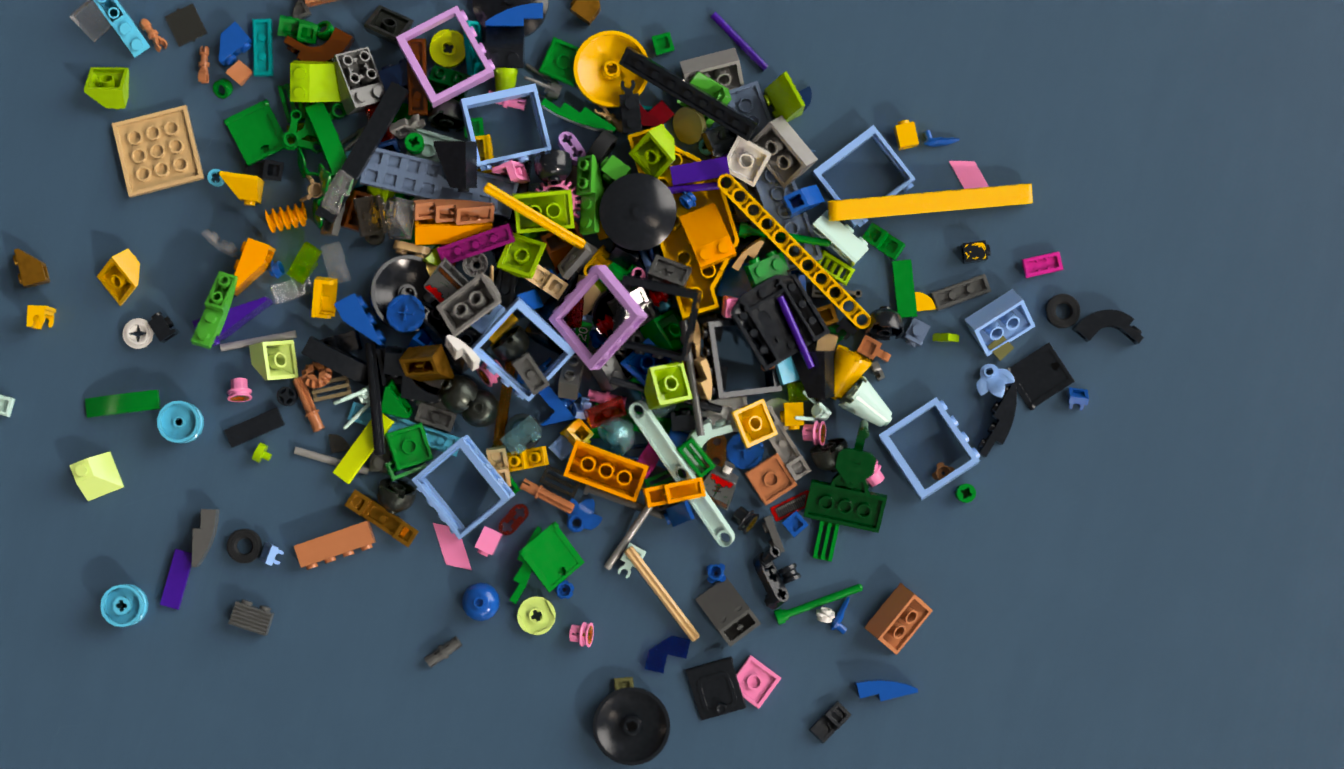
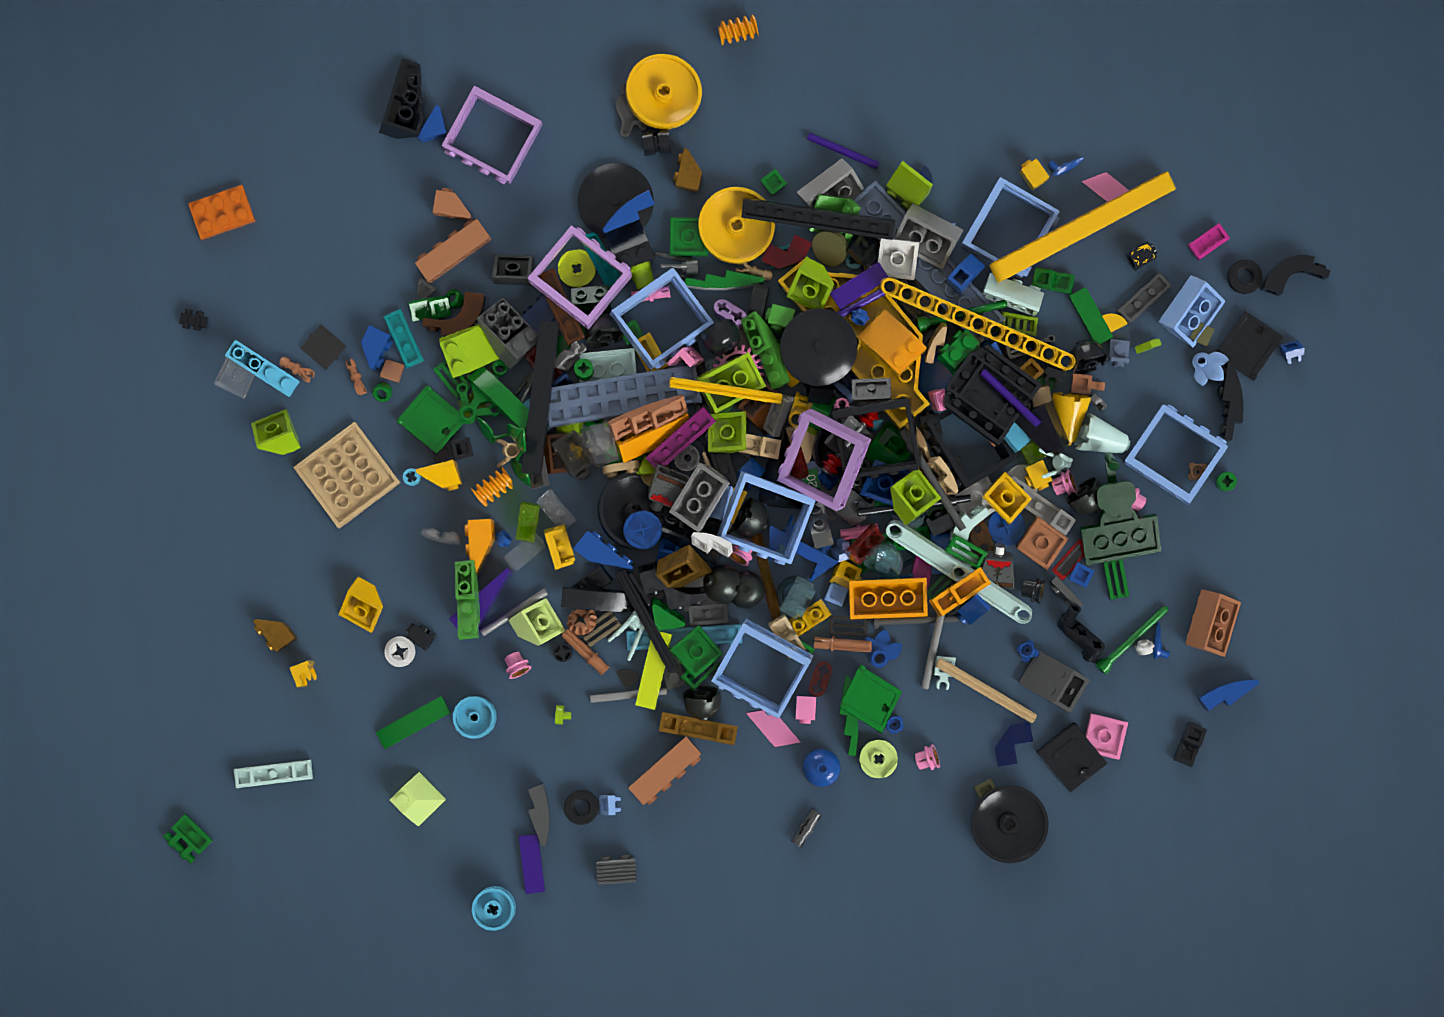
camera: 20 degrees left, 0 degrees up
(254, 427) = (544, 693): black tile -> none
(338, 188) = (534, 440): clear slope -> none
(458, 163) = (634, 370): black slope -> none
(530, 373) = (783, 537): dark grey plate -> none
(630, 109) = (770, 255): black plate -> none
(789, 573) = (1095, 623): black wheel -> none

